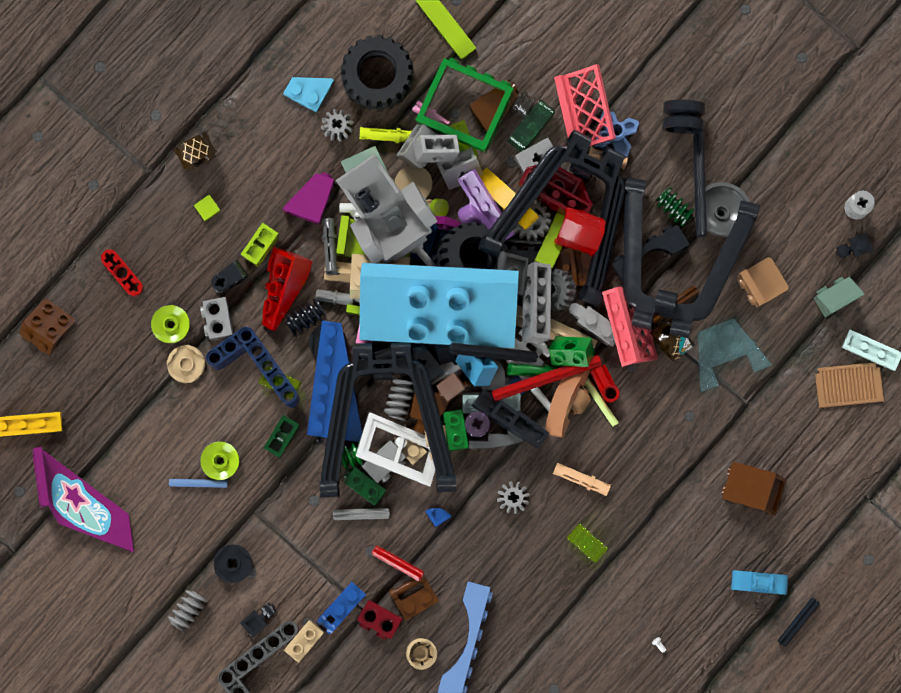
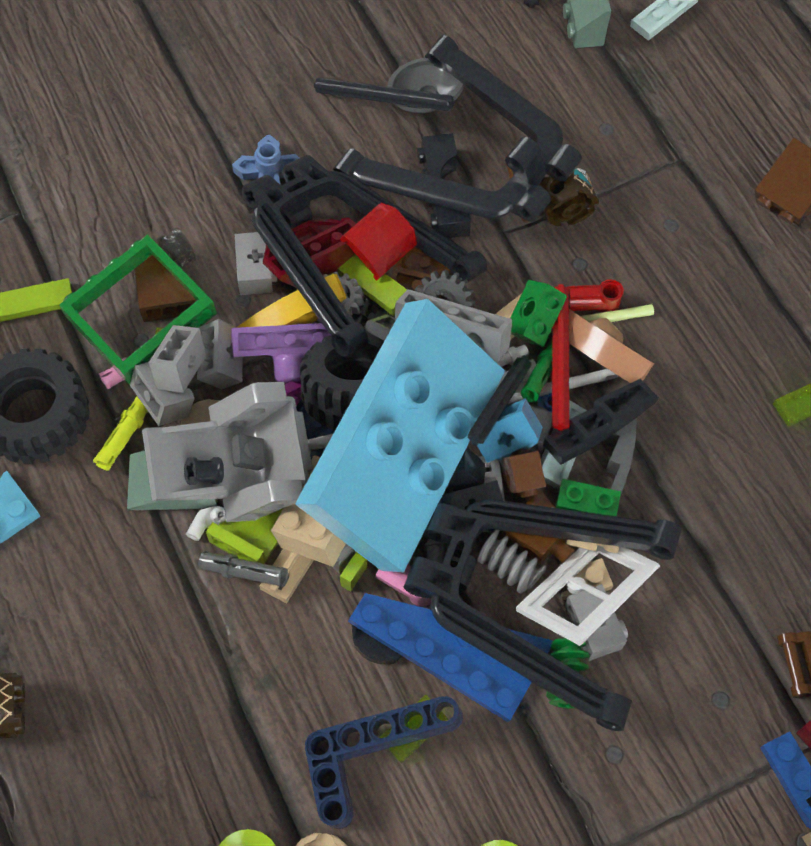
camera: 70 degrees left, 20 degrees down
(207, 208) = (94, 730): lime tile -> none
(221, 317) = (275, 774): light grey brick -> none
(230, 276) = (217, 734): black piece -> none
(260, 245) = (191, 667): lime brick -> none
(281, 436) = (501, 756): dark green brick -> none
(286, 279) = (264, 657): red wedge -> none
(305, 317) = (328, 646): black piece -> none
(311, 199) = (162, 568): magenta slope -> none
(333, 297) = (319, 596): light grey axle -> none
(338, 118) = (62, 495): light grey gear -> none
(358, 514) = (661, 690): light grey axle -> none
(364, 486) = (623, 663): dark green brick -> none
(398, 563) = (757, 663): red axle -> none
(438, 515) = (701, 582): blue tile -> none
(473, 431) = (592, 465): clear purple piece -> none
(509, 502) = (721, 472): light grey gear -> none
(531, 126) = (210, 254): clear green beam -> none
(570, 108) = (208, 198): coral fence -> none
(582, 479) = (720, 367): light nougat pin -> none
(593, 323) = (510, 275): light grey hinge -> none
(624, 333) = (530, 235): coral fence -> none
(675, 207) = (395, 134): dark green piece -> none
(683, 116) = (288, 80): black wheel -> none
(721, 345) = (600, 155): clear light blue wing -> none
(762, 282) = (537, 83): medium nougat bracket -> none
(849, 385) = (697, 50): medium nougat window -> none

